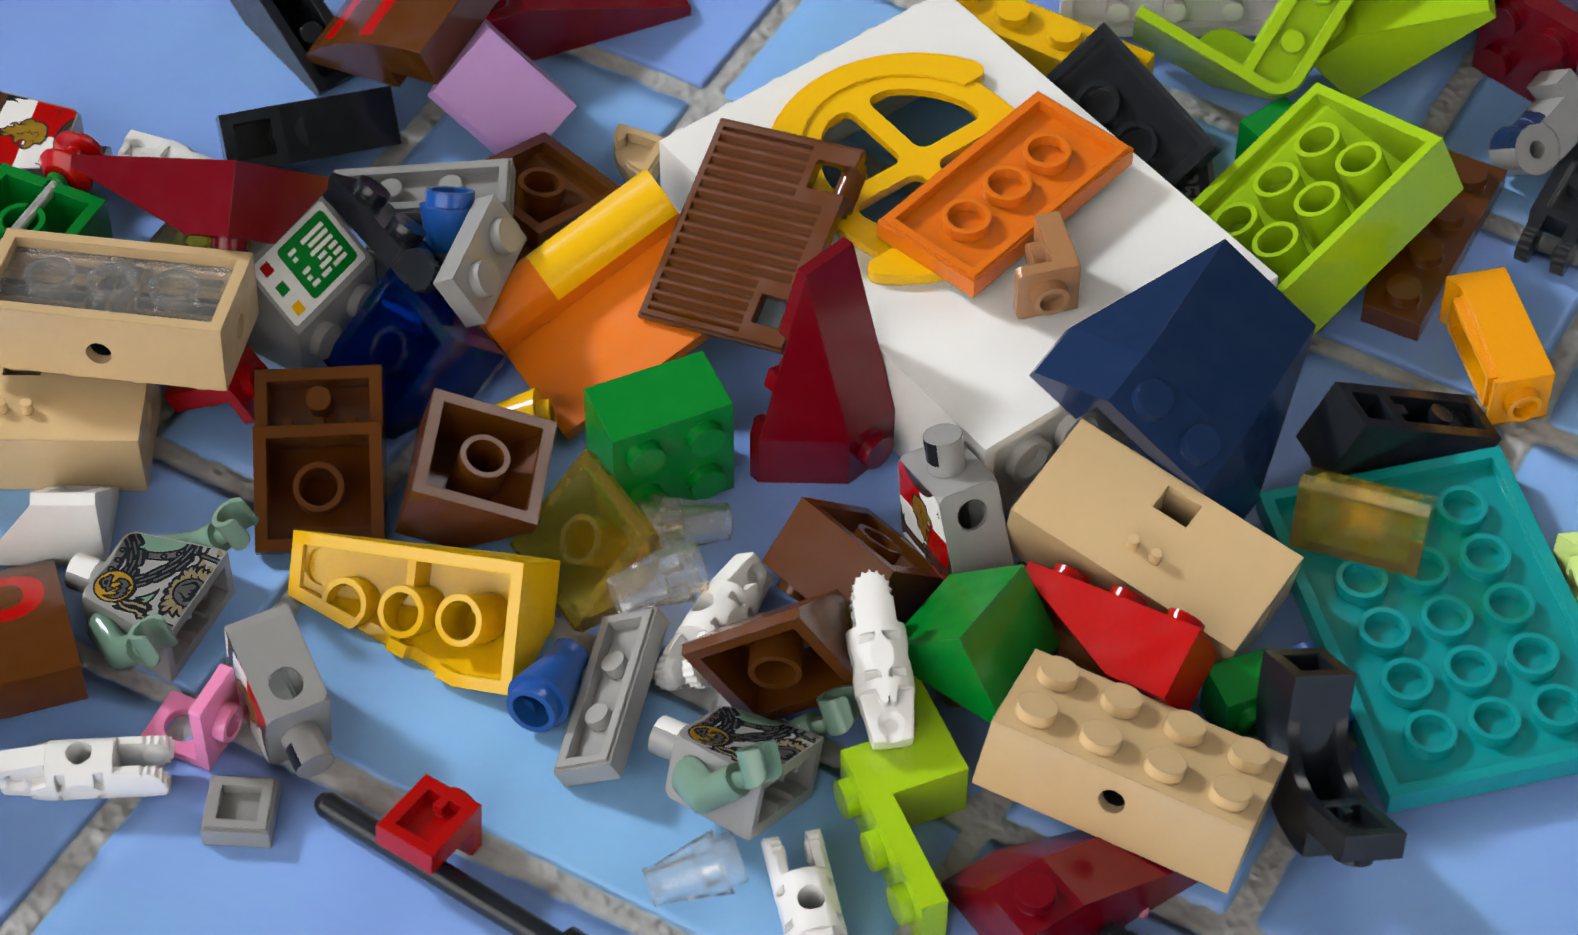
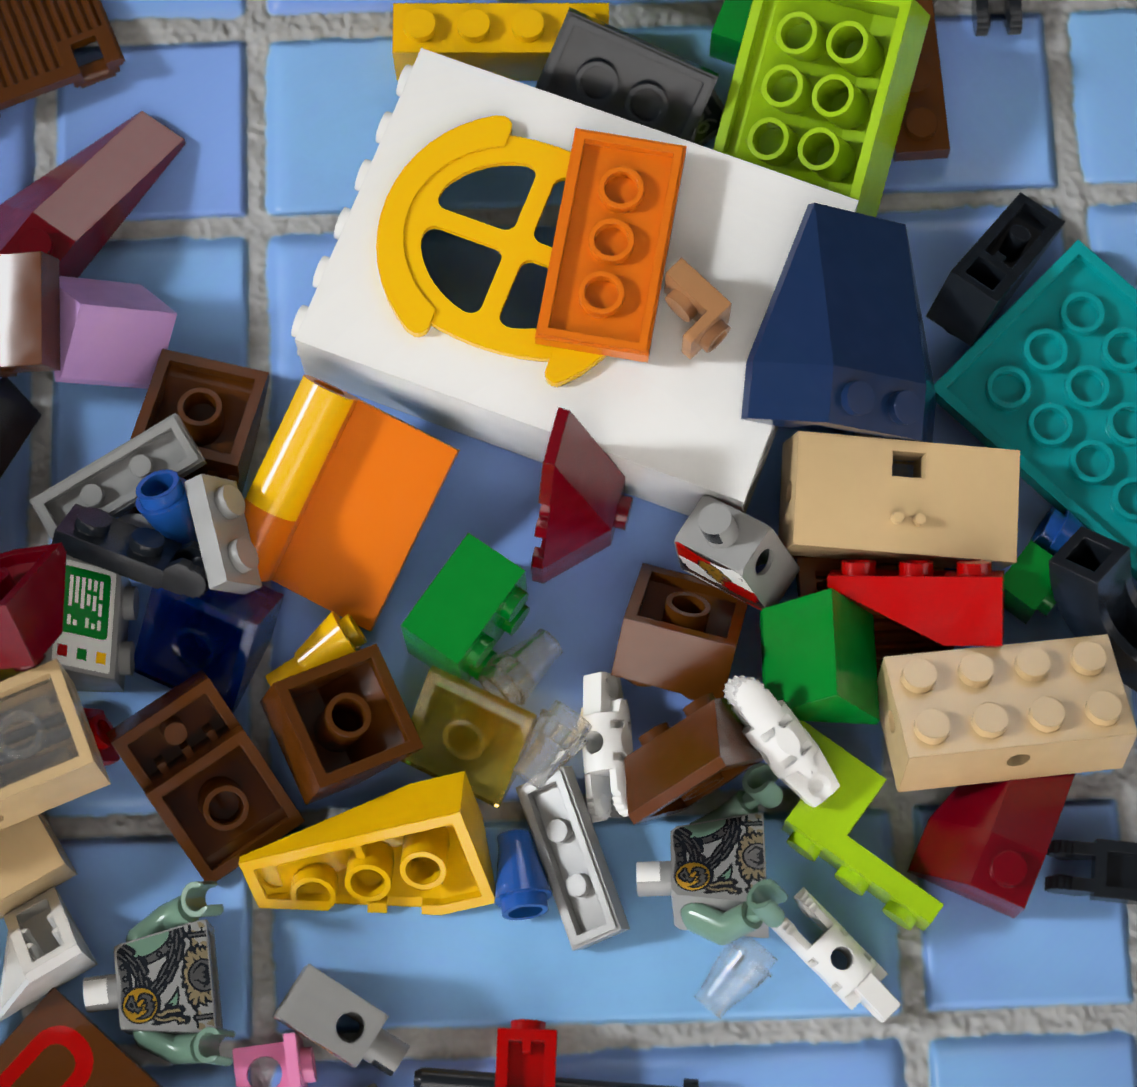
camera: 30 degrees left, 25 degrees up
(636, 151) = (244, 318): tan tile -> none
(749, 231) = (432, 394): reddish brown window -> none
(1362, 521) = (1030, 371): clear yellow slope -> none
(1497, 345) = (1021, 139): light orange window -> none

